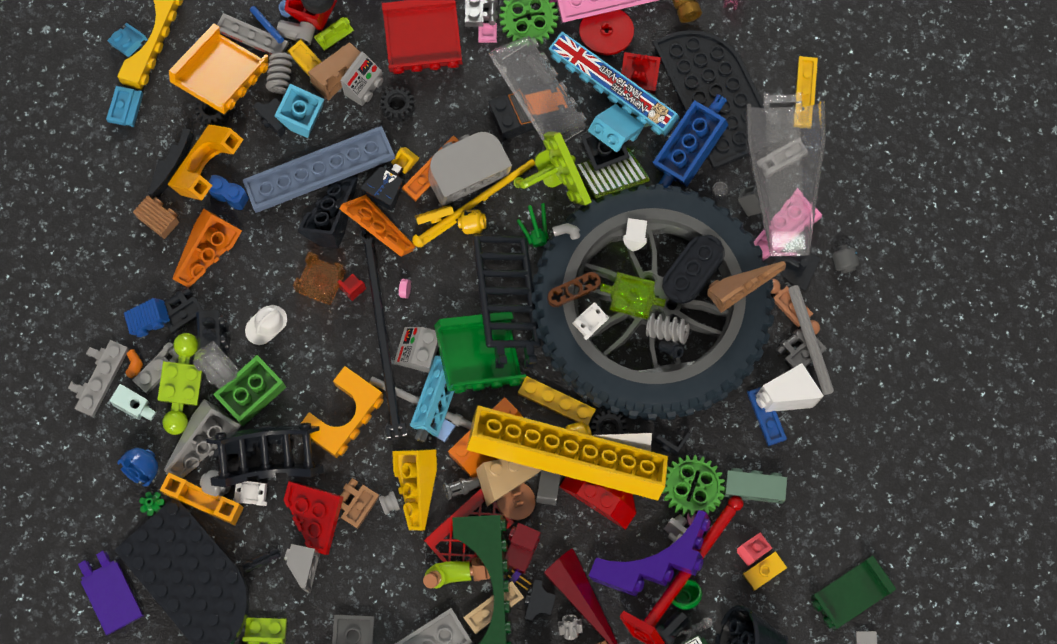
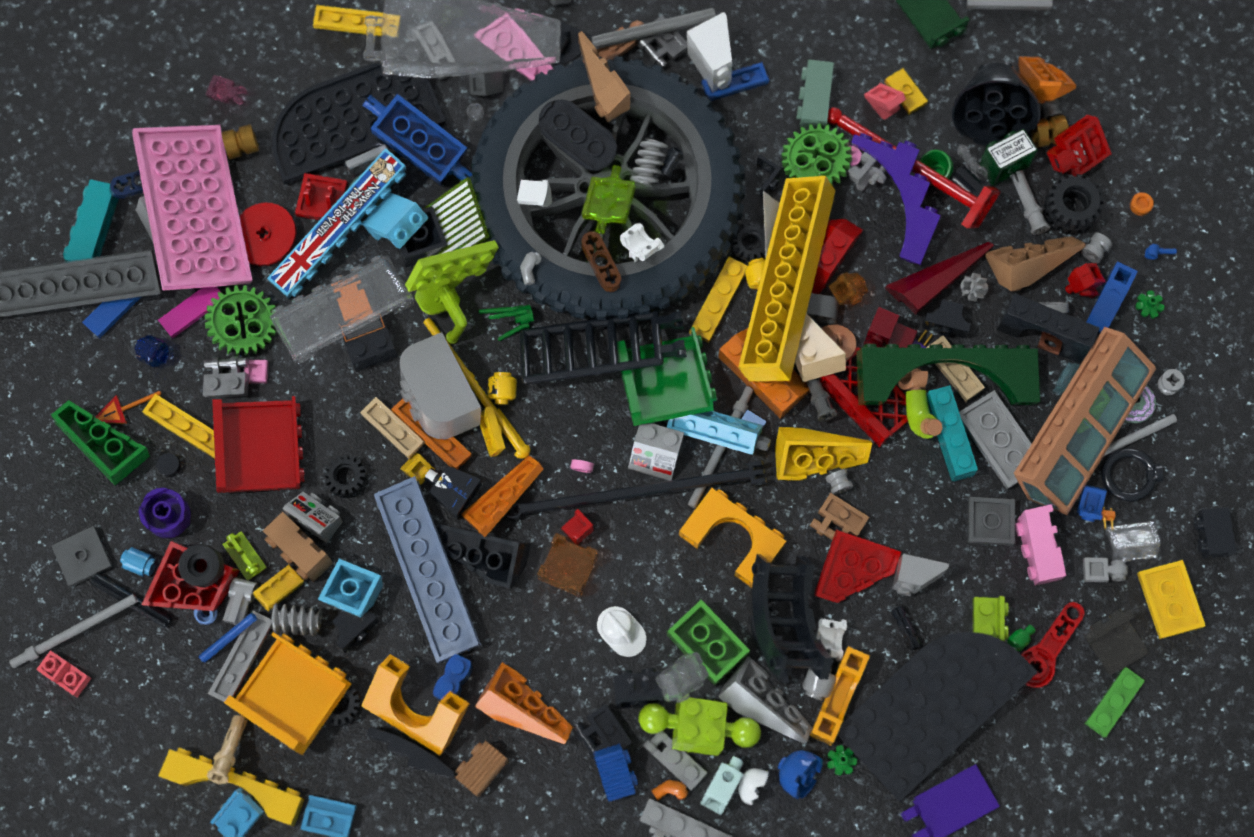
camera: 90 degrees left, 0 degrees up
(132, 426) = (749, 782): none -> white hair
(168, 25) = (225, 757): none -> tan pin
(431, 601) = (953, 437): none -> teal brick
(438, 137) = (392, 428): none -> tan plate
(565, 512) = (849, 288): none -> clear orange brick
(672, 102) = (363, 161): none -> light grey tile

